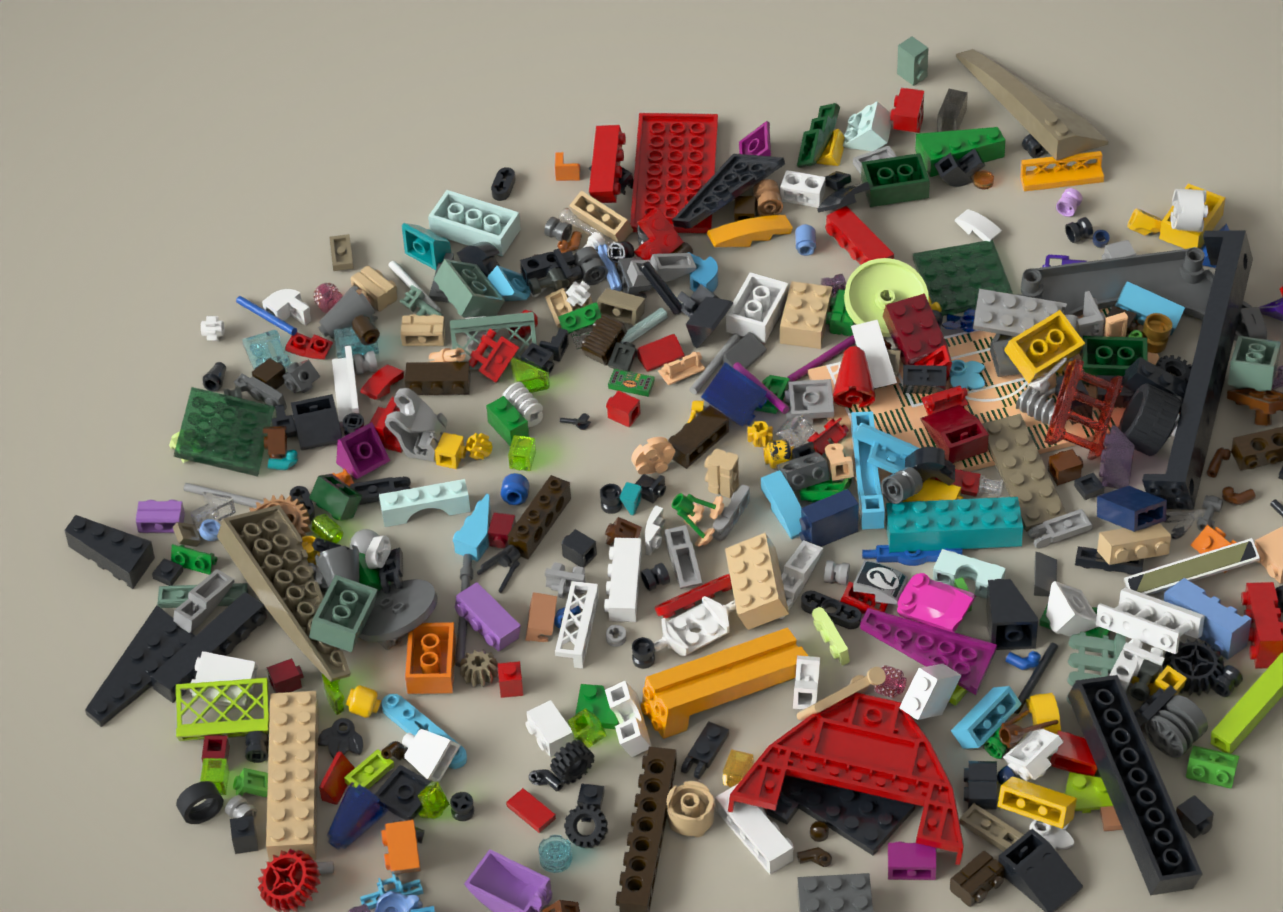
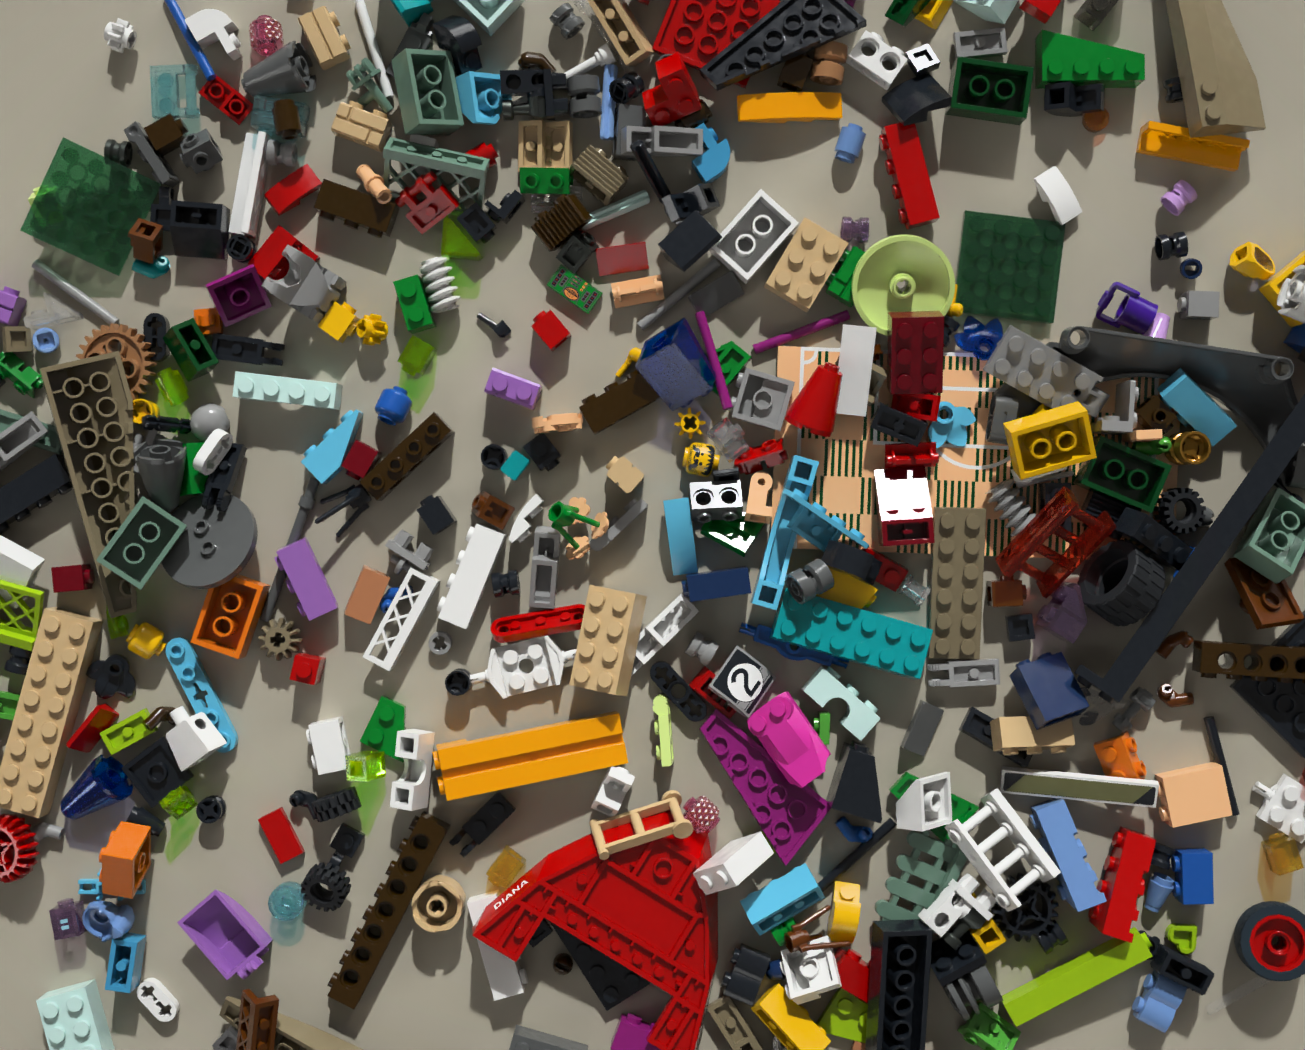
camera: 15 degrees right, 40 degrees up
(214, 377) = (106, 110): black cone -> none
(572, 245) = (575, 49): dark orange arm -> none
(578, 293) = (553, 142): white gear -> none
(608, 451) = (513, 388): none -> medium lavender brick
(815, 855) = (550, 995): dark brown arm -> none

